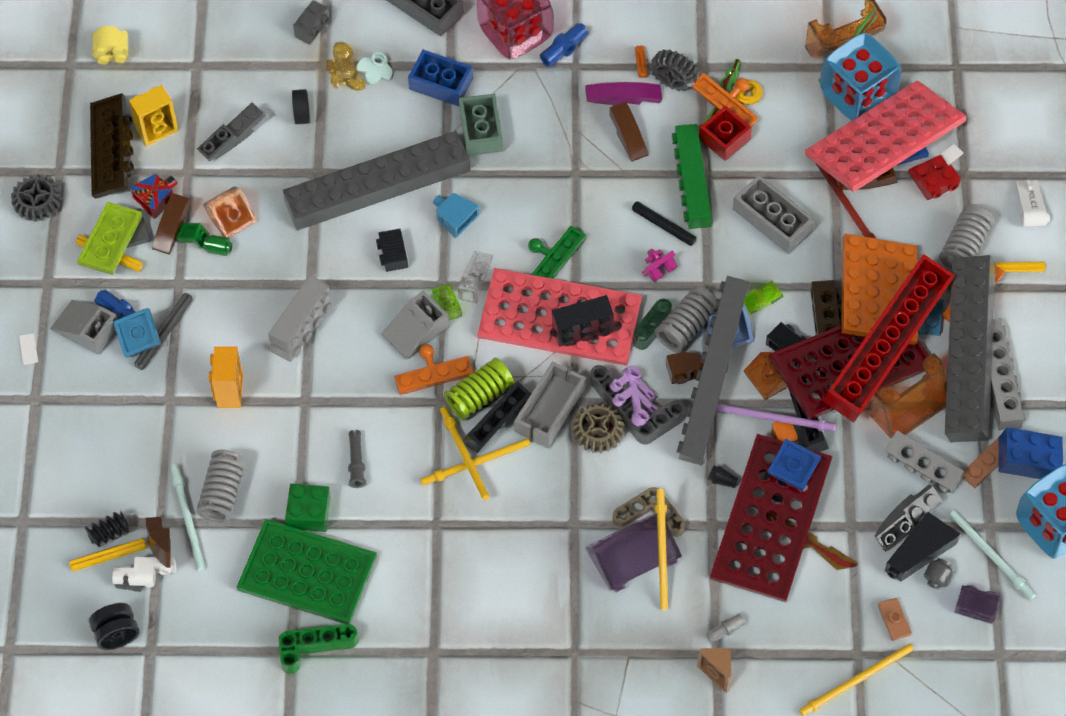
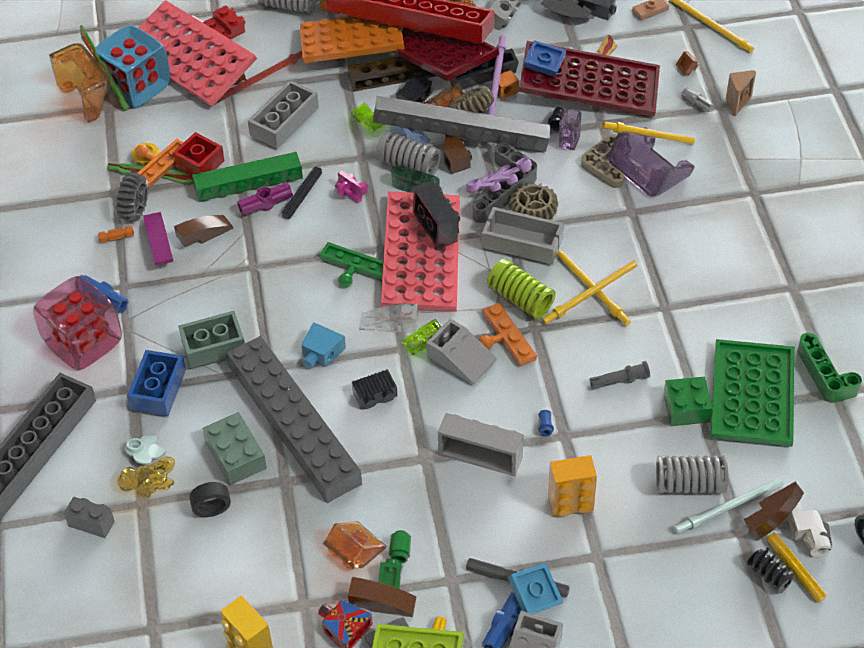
camera: 100 degrees left, 10 degrees down
(230, 136) = (250, 565): dark grey slope -> none
(319, 384) = (545, 427): none -> blue pin
(354, 132) = (234, 448): none -> sand green brick
(497, 417) = (549, 271): black brick -> none
(660, 195) = (264, 198): none -> magenta piece
(691, 477) = (569, 129): none -> clear purple brick
(748, 387) = (474, 100): none -> dark tan gear
(785, 630) = (687, 63): none -> dark orange tile

